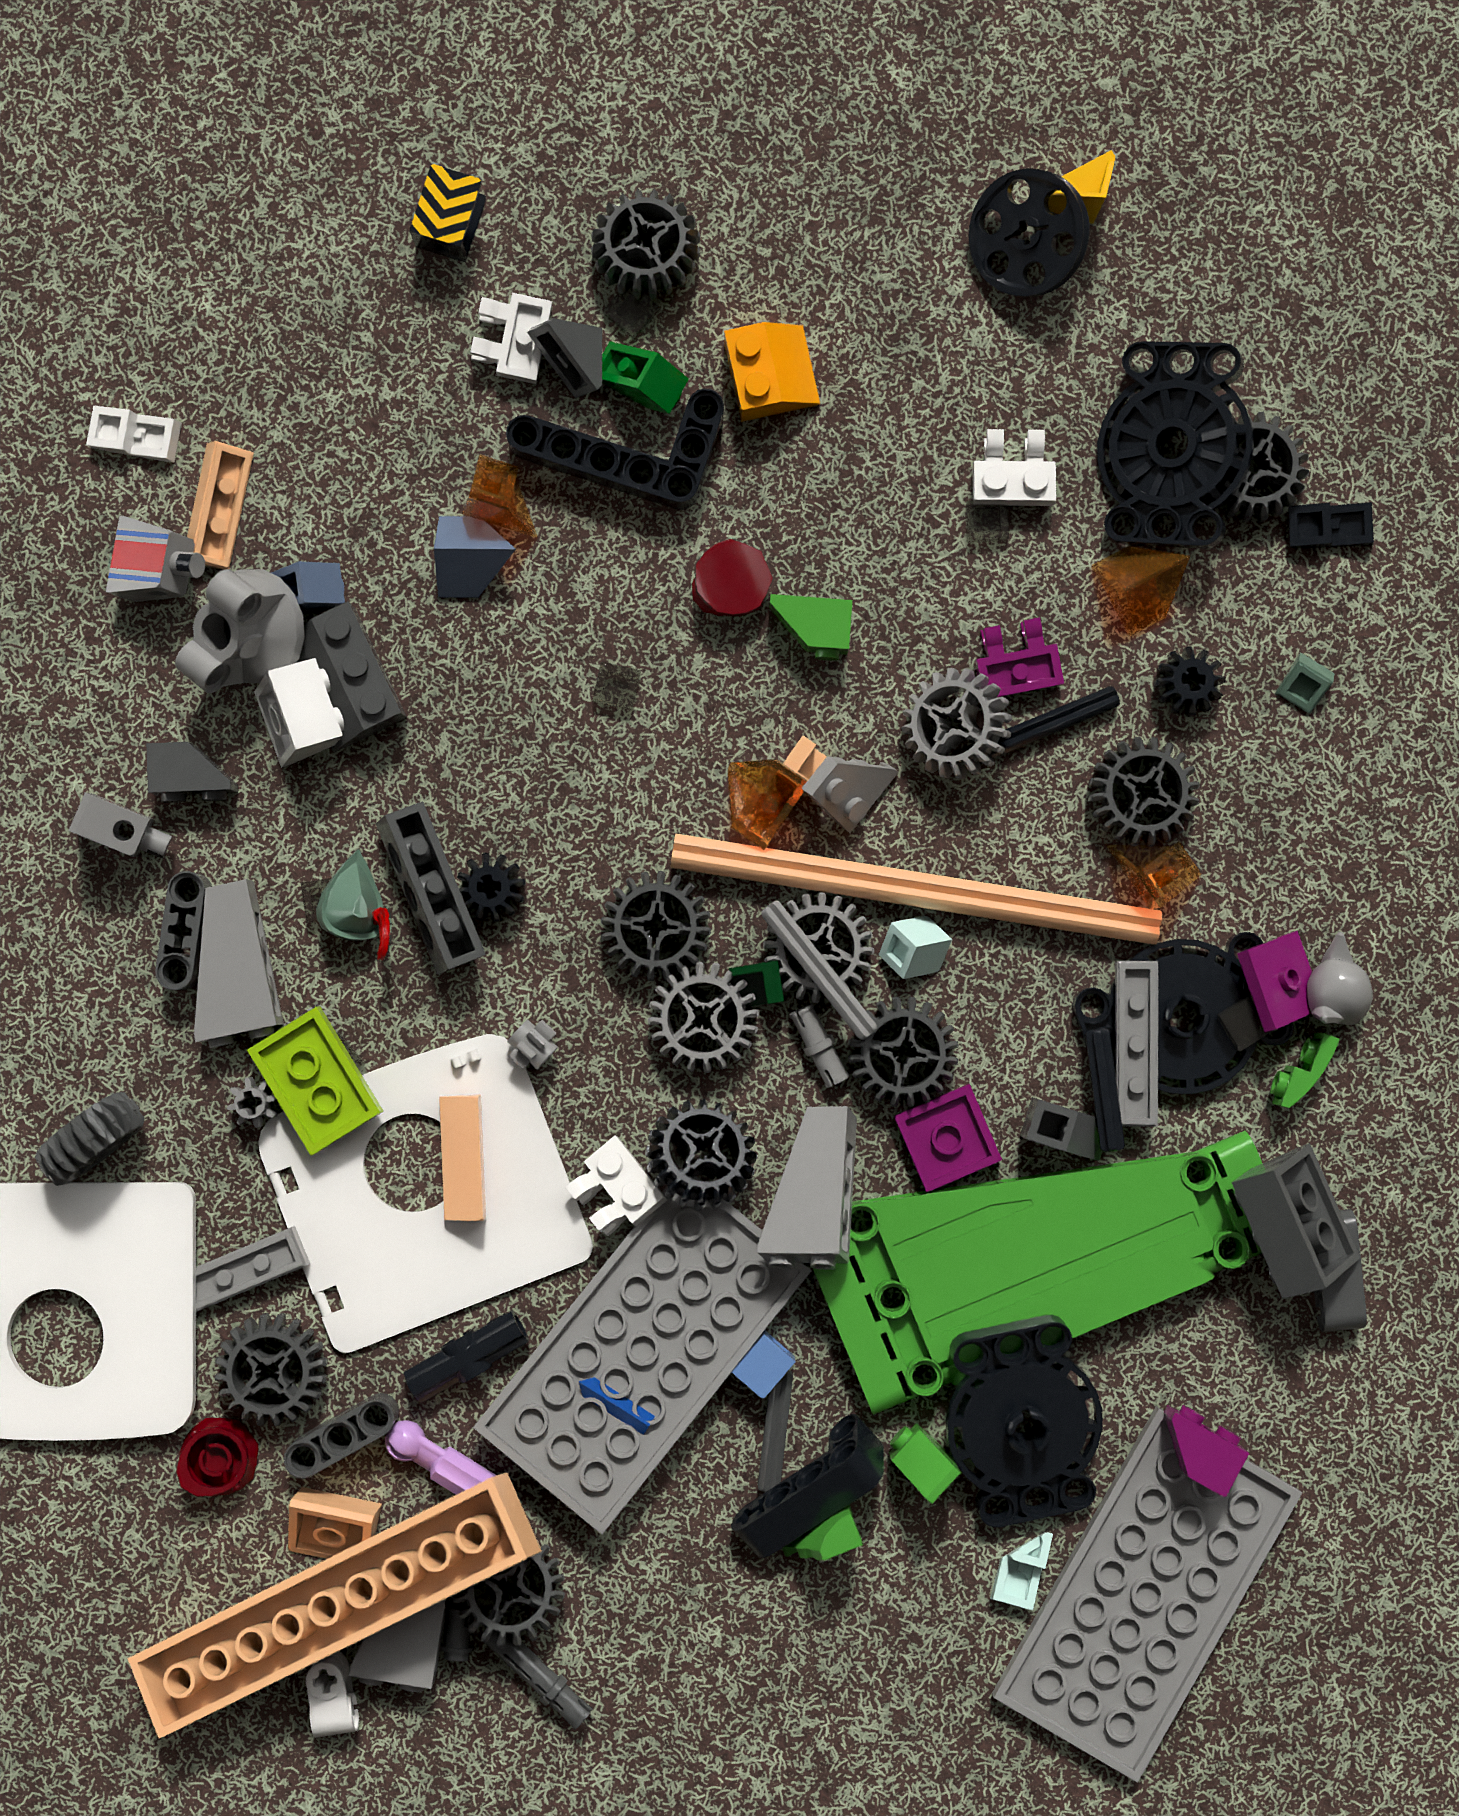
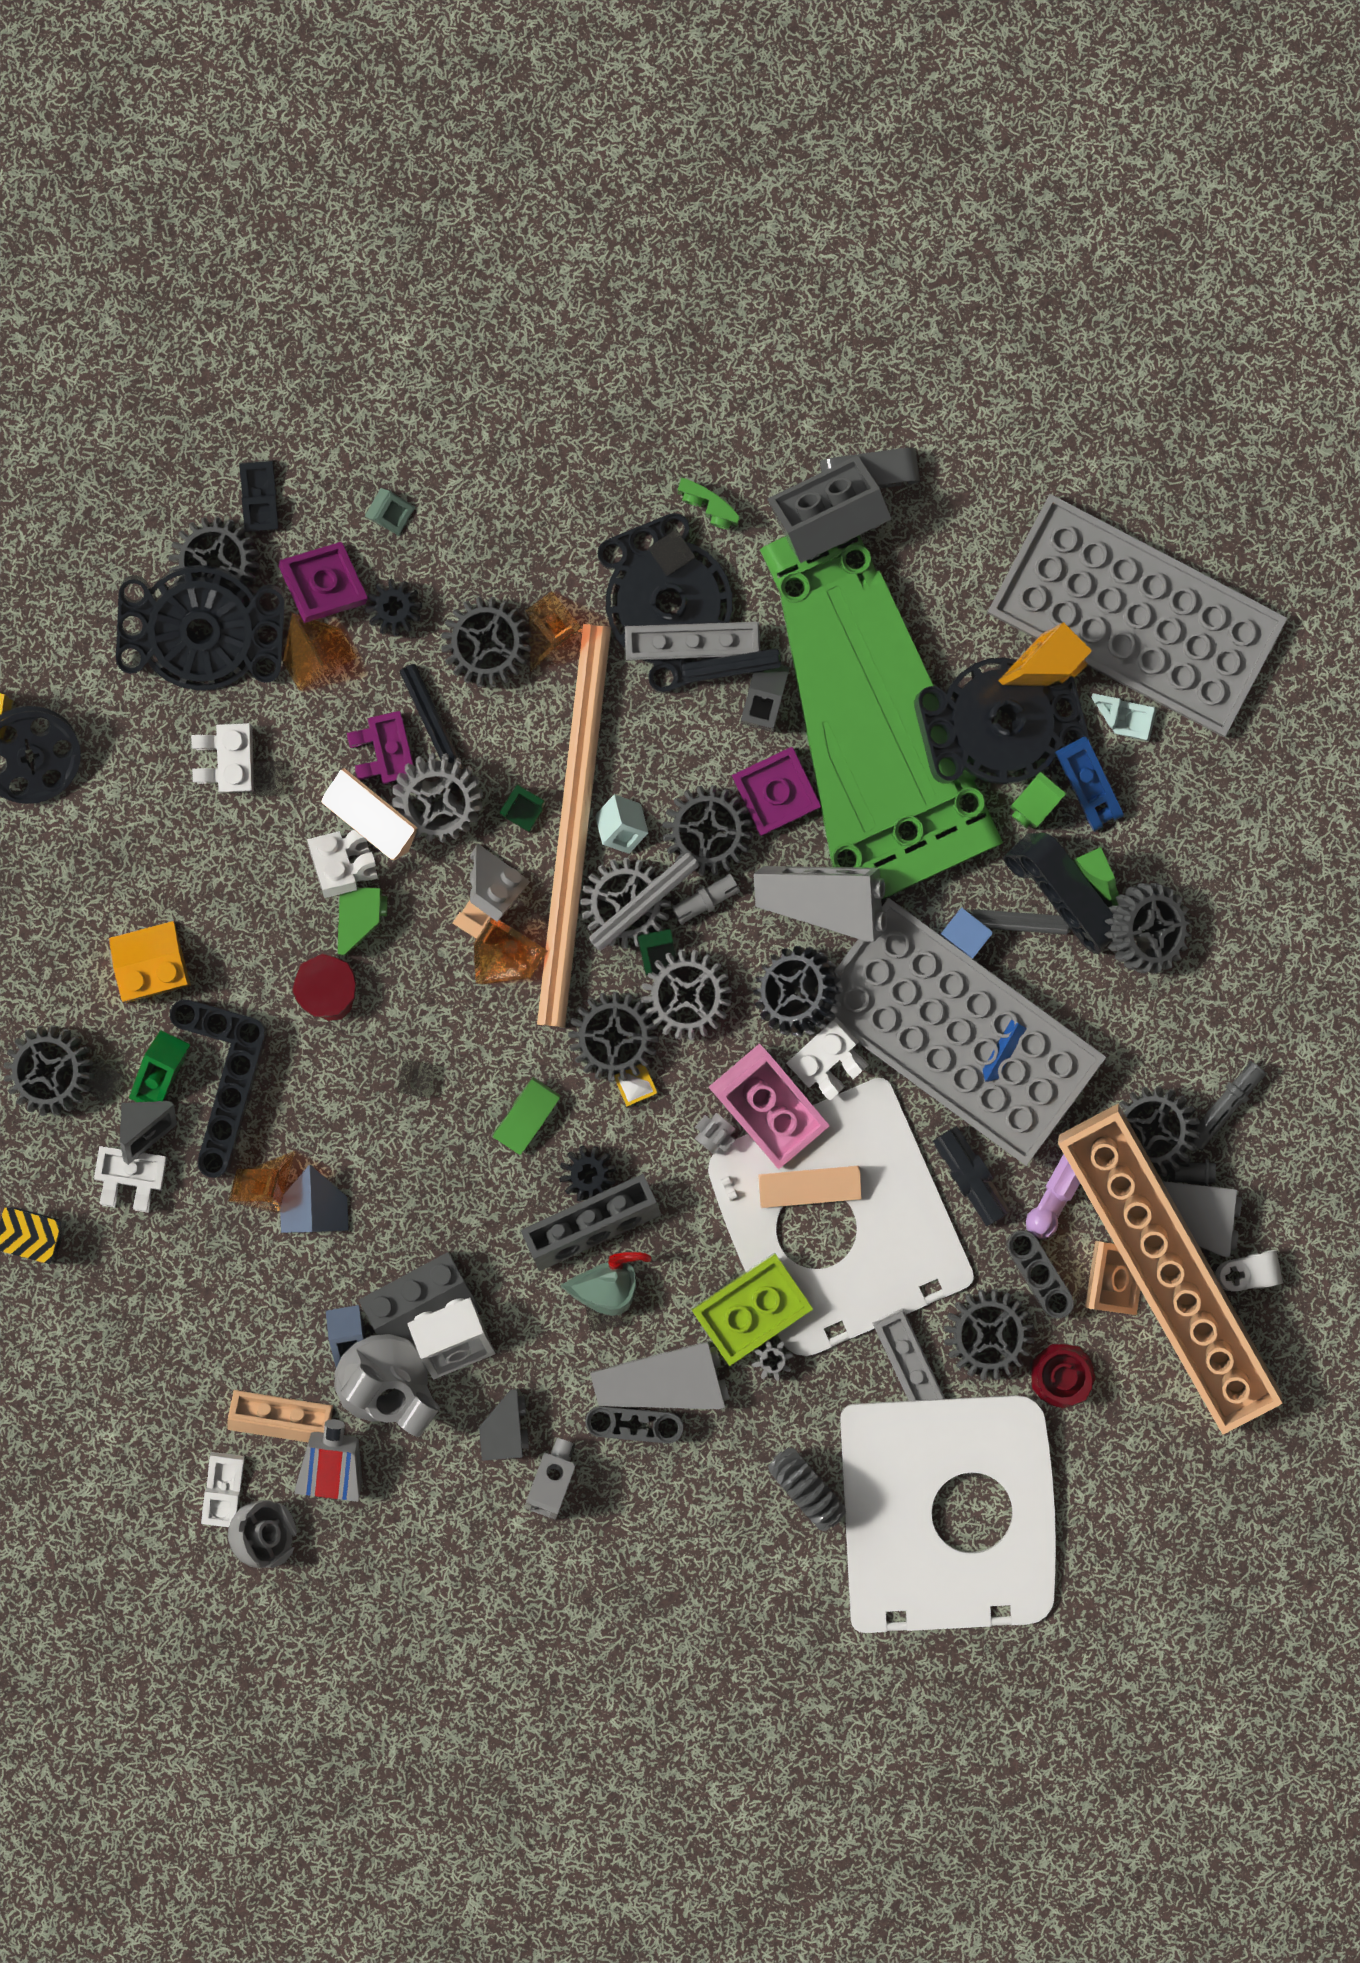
camera: 90 degrees left, 0 degrees up
(71, 475) = (262, 1534): none -> light grey cylinder
(562, 1112) = (769, 1106): none -> bright pink slope
(564, 816) = (526, 1116): none -> bright green slope
(593, 951) = (636, 1087): none -> tile
(760, 1593) = (1138, 912): none -> dark grey gear
(881, 593) = (332, 862): none -> white plate
(938, 640) = (369, 815): none -> slope
(939, 827) = (523, 808): none -> dark green panel
(942, 1526) = (1089, 783): none -> blue plate
(1100, 1489) = (1050, 658): none -> light orange slope
(1205, 1454) = (1019, 577): magenta slope -> none
(1225, 596) = (323, 582): none -> magenta plate
(1278, 979) = (636, 525): magenta plate -> none
(1338, 987) = (639, 478): light grey piece -> none

